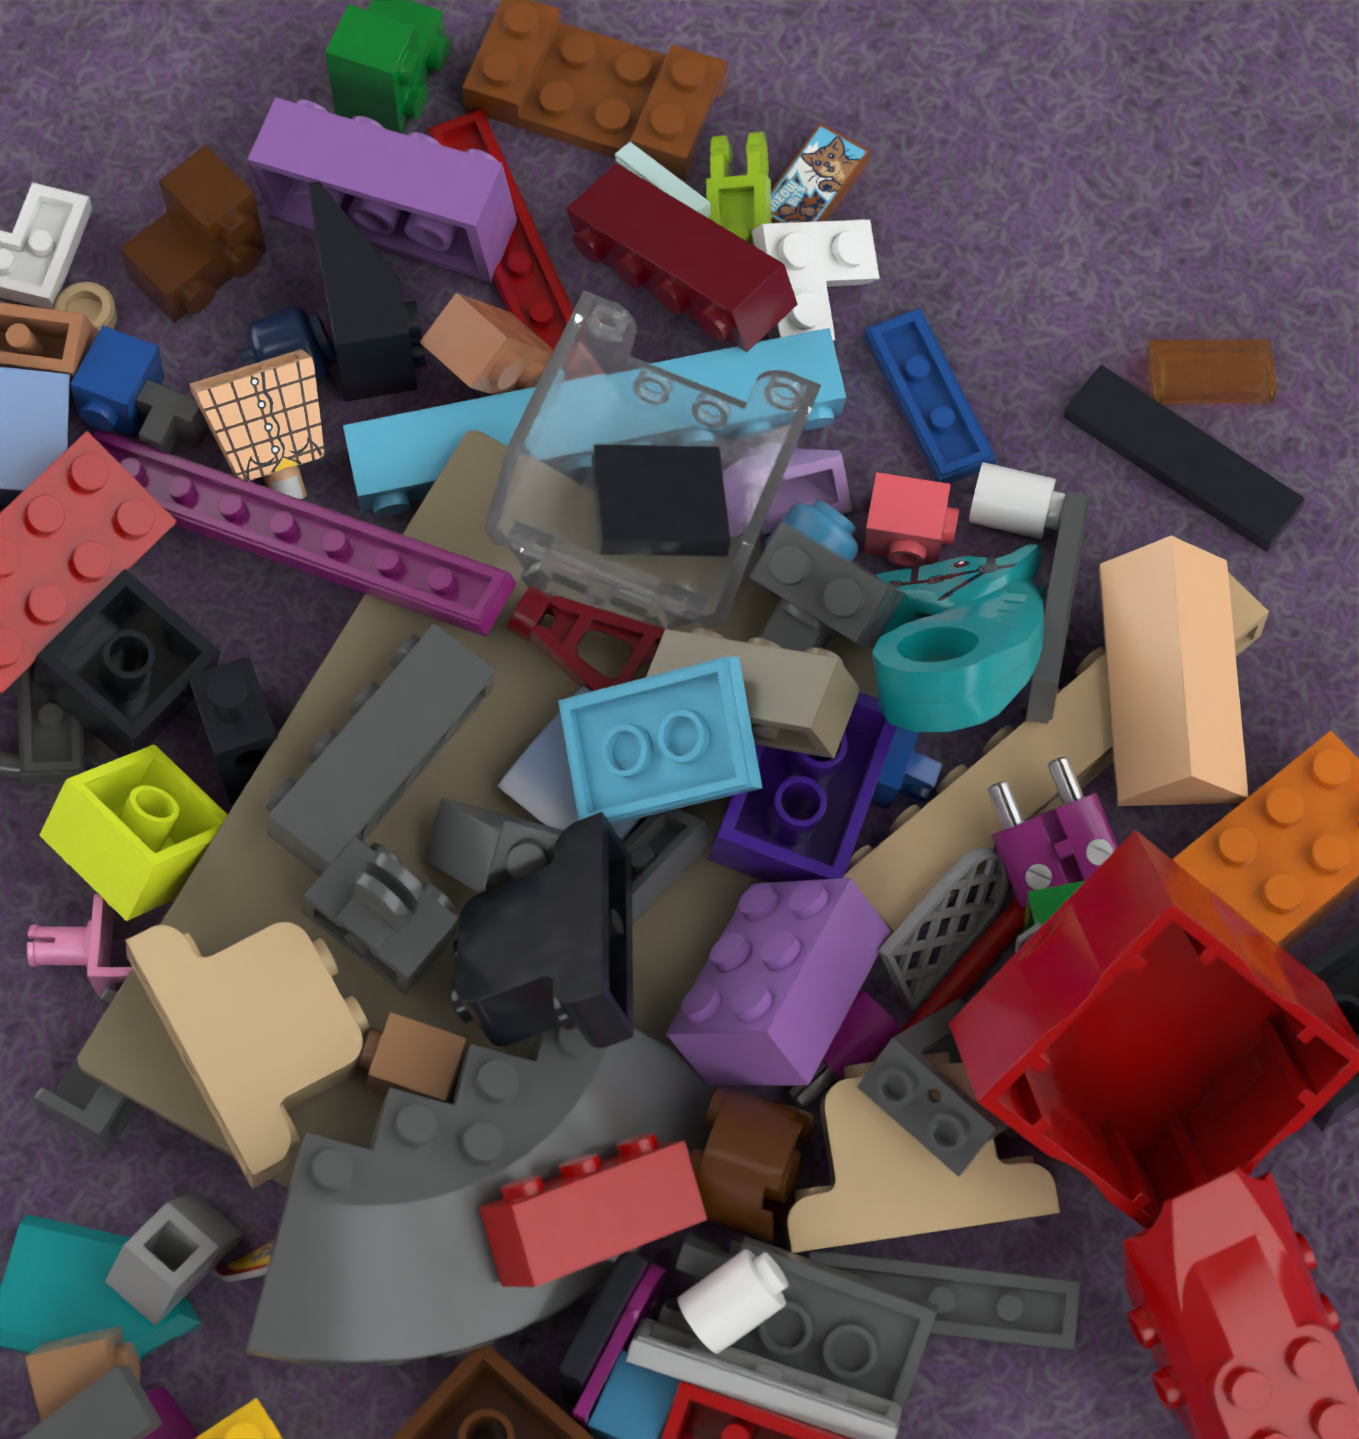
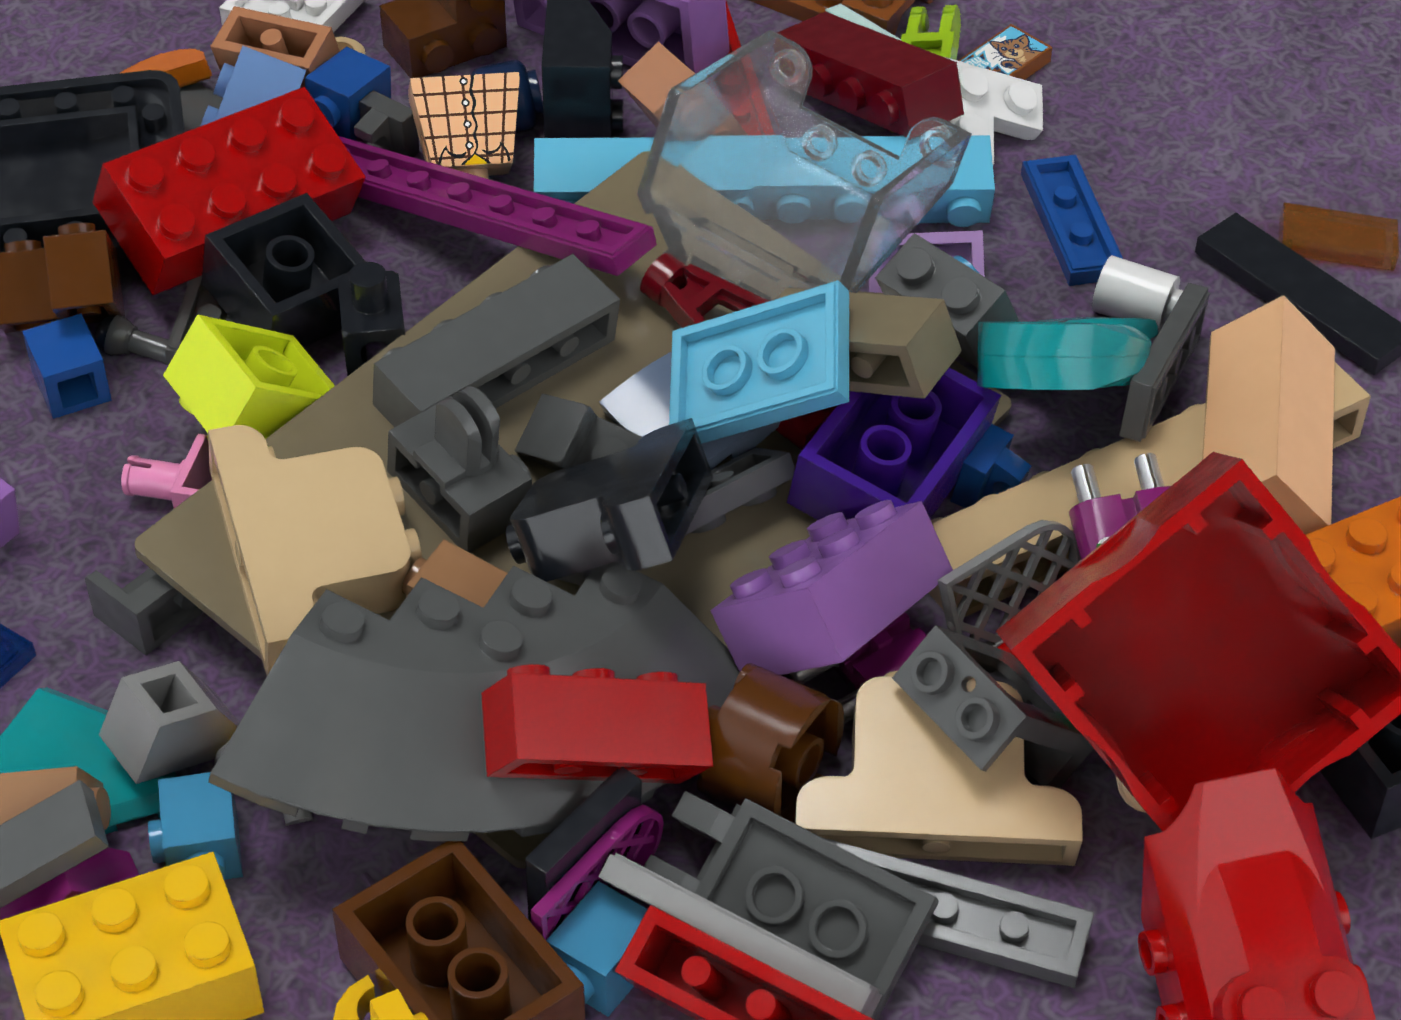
camera: 10 degrees right, 20 degrees down
(219, 1361) = (195, 822): none -> dark azure brick
(660, 500) = (803, 212): black tile -> none
(734, 1299) = (724, 840): white brick -> none
(909, 520) = (1040, 284): coral brick -> none

